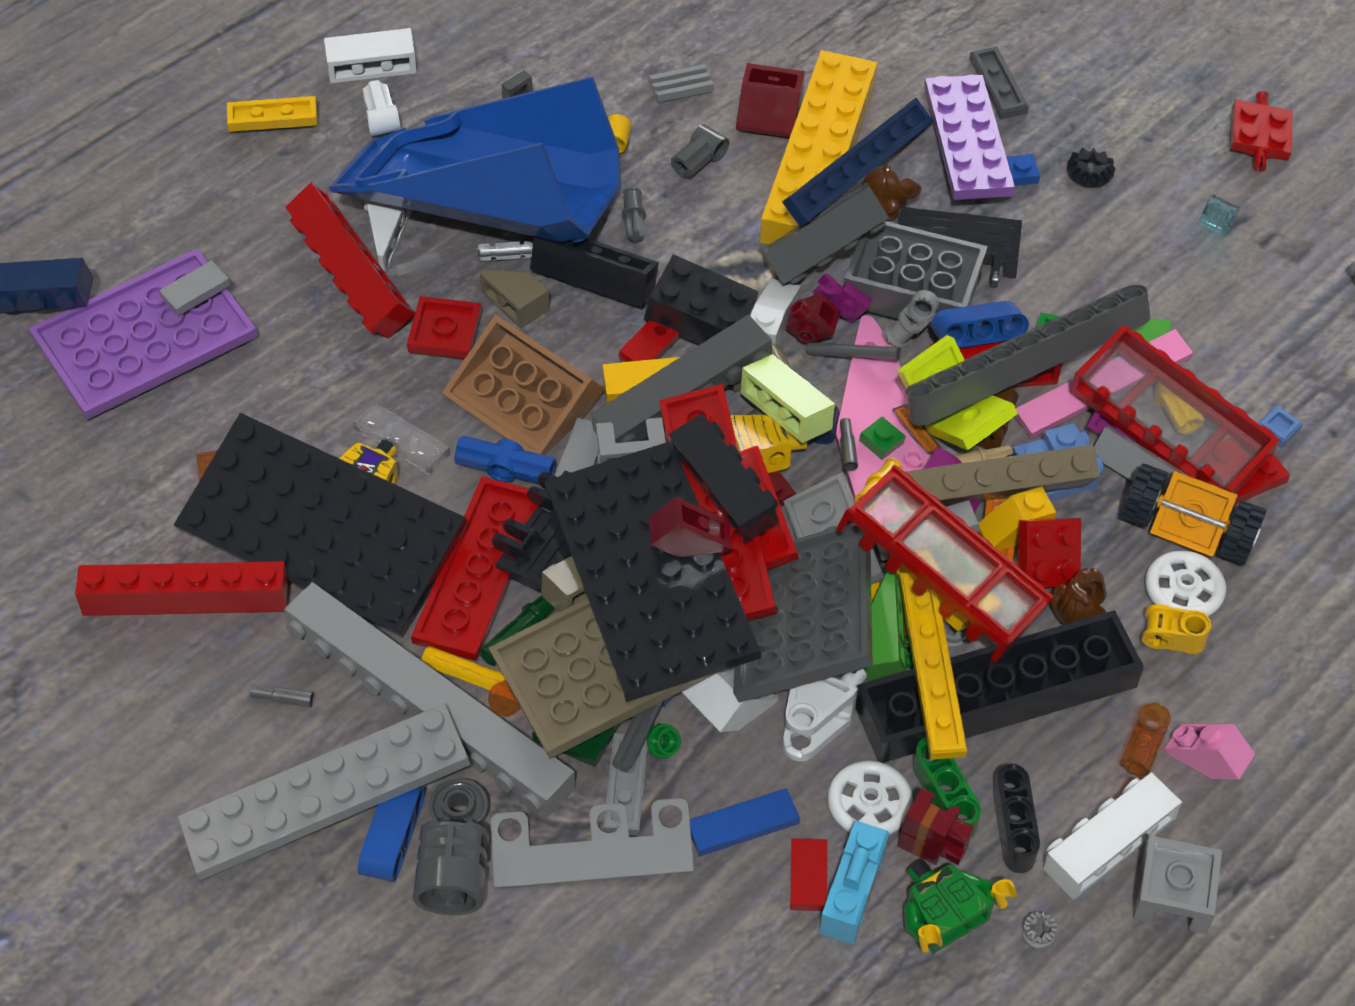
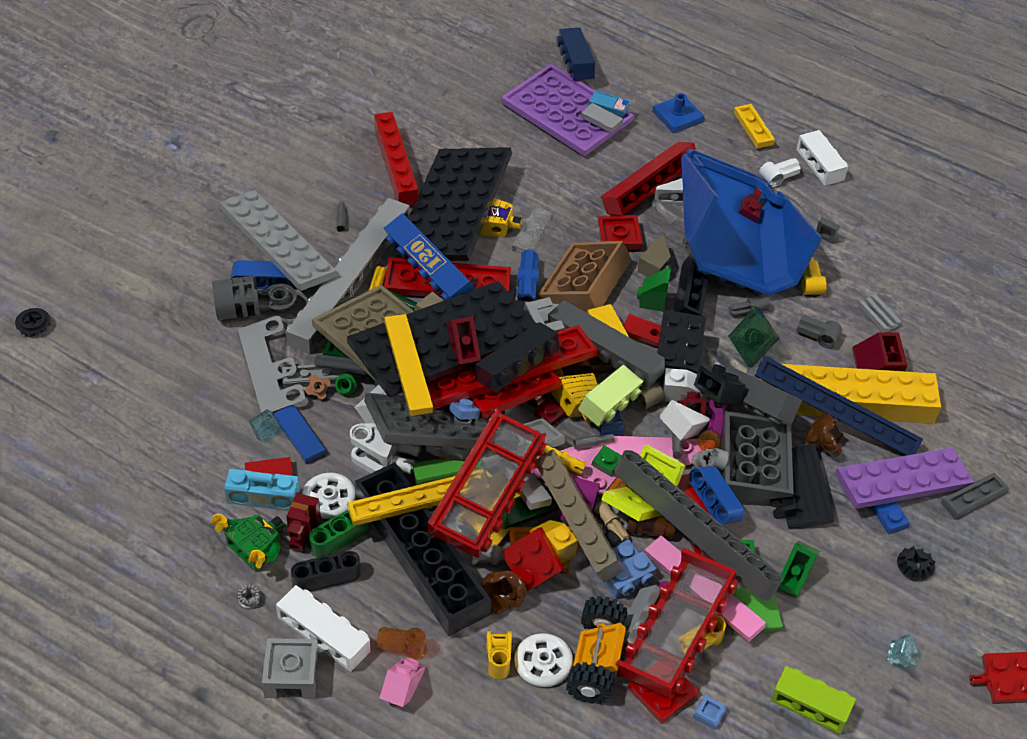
camera: 75 degrees right, 5 degrees down
(164, 270) = (610, 103): none -> dark azure tile
(204, 197) = (678, 113): none -> blue tile
(441, 157) = (750, 207): none -> dark red plate
(461, 569) = (427, 258): none -> blue brick
(586, 305) = (654, 291): none -> green slope
(660, 780) = (312, 390): none -> nougat plate
(705, 219) = (753, 337): none -> clear green tile
(719, 612) = (408, 365): none -> yellow tile
(723, 865) = (264, 425): none -> clear light blue tile
(783, 576) = (464, 409): none -> medium blue plate
(801, 269) = (719, 384): none -> black brick
(846, 330) = (683, 421): none -> white slope
(875, 314) = (709, 440): none -> clear orange tile
(1084, 274) = (798, 568): none -> green slope
(1277, 317) = (813, 699): none -> lime brick

